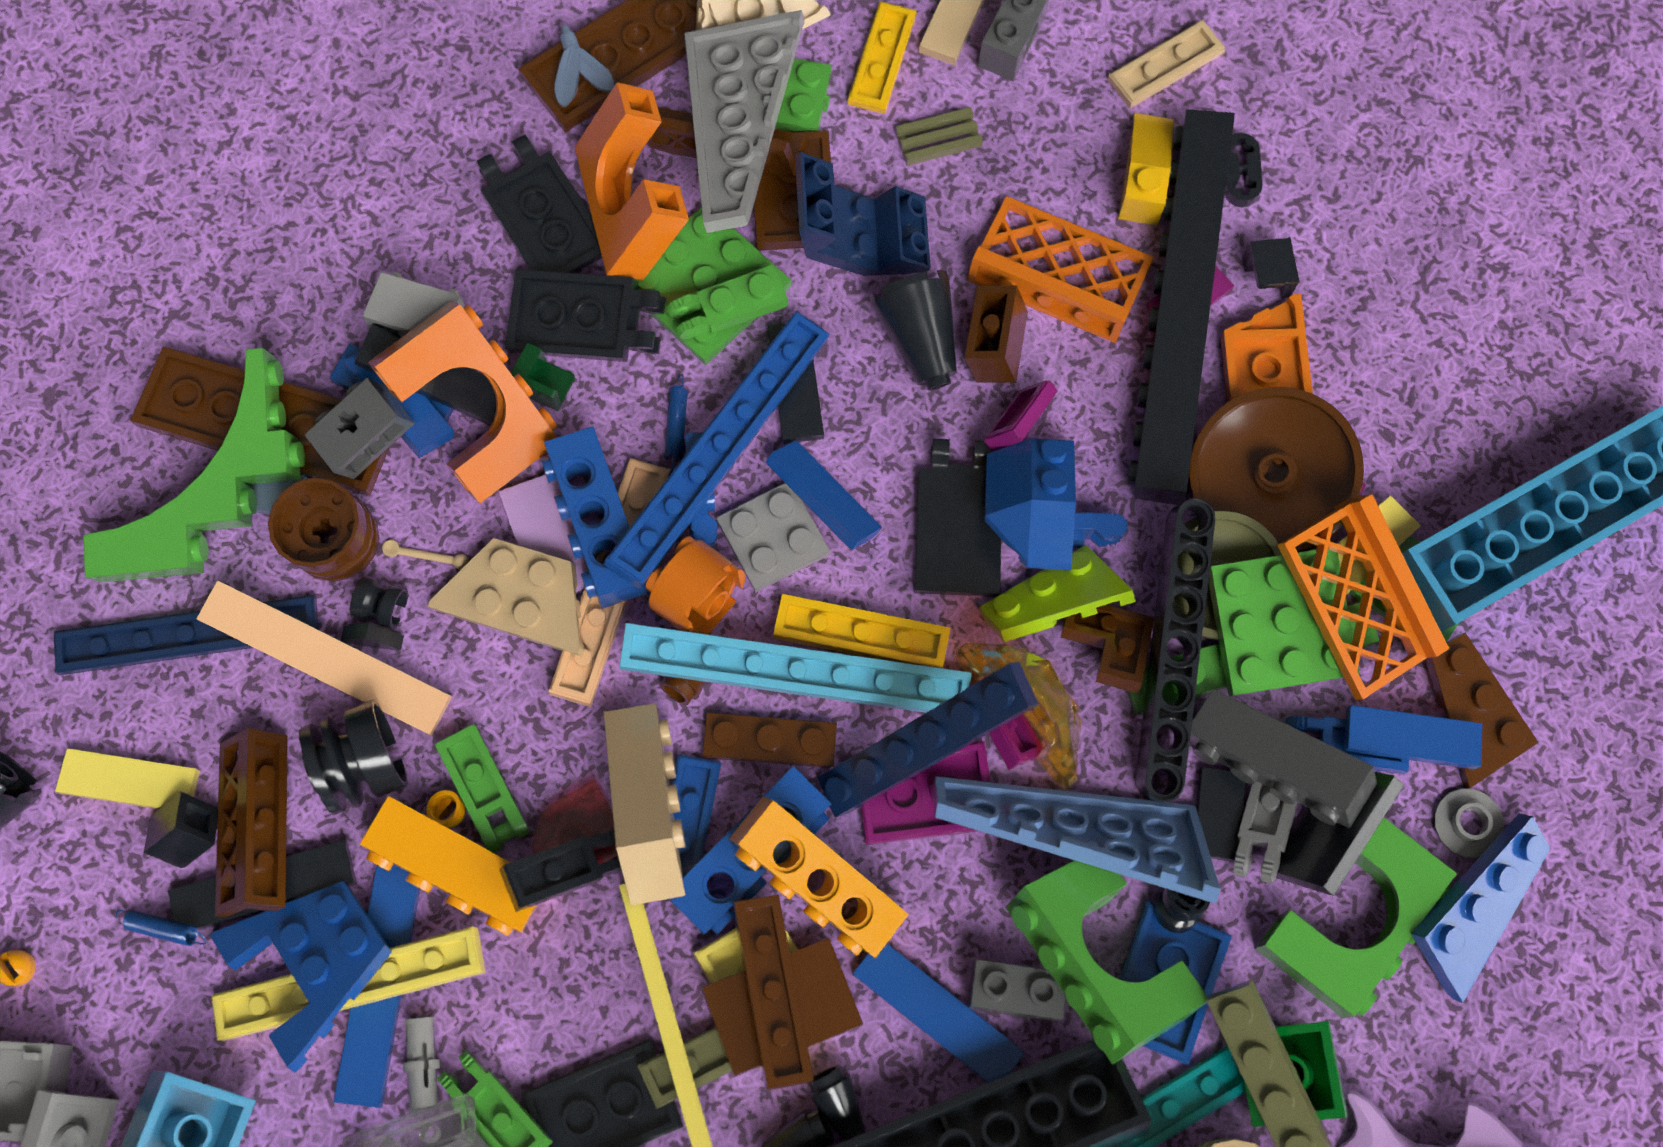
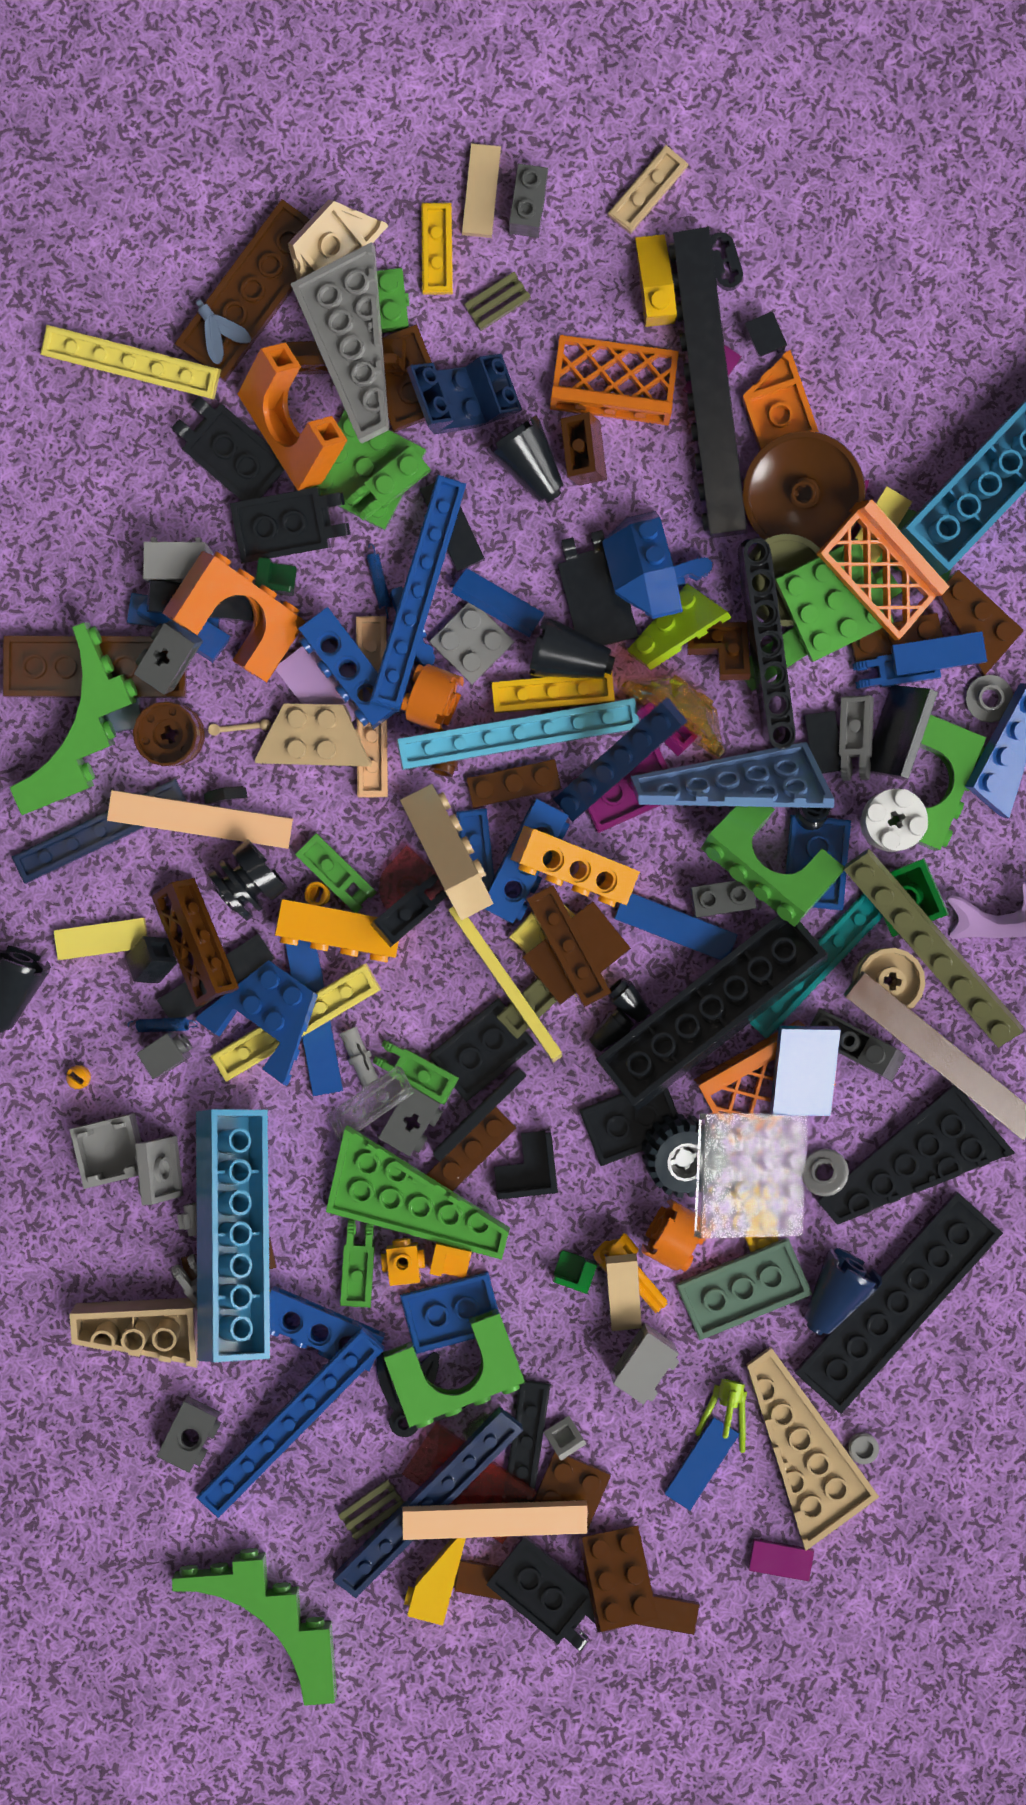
camera: 20 degrees left, 15 degrees up
(141, 970) = (165, 1054): none -> dark grey brick
(377, 601) = (221, 770): black wheel -> none
(457, 75) = (130, 362): none -> light yellow tile
(897, 584) = (568, 653): none -> black cone
(1020, 415) = (617, 505): magenta tile -> none
(1282, 758) = (854, 697): dark grey brick -> none
(1324, 944) = (910, 828): none -> white brick
(1333, 697) = (880, 641): none -> reddish brown plate

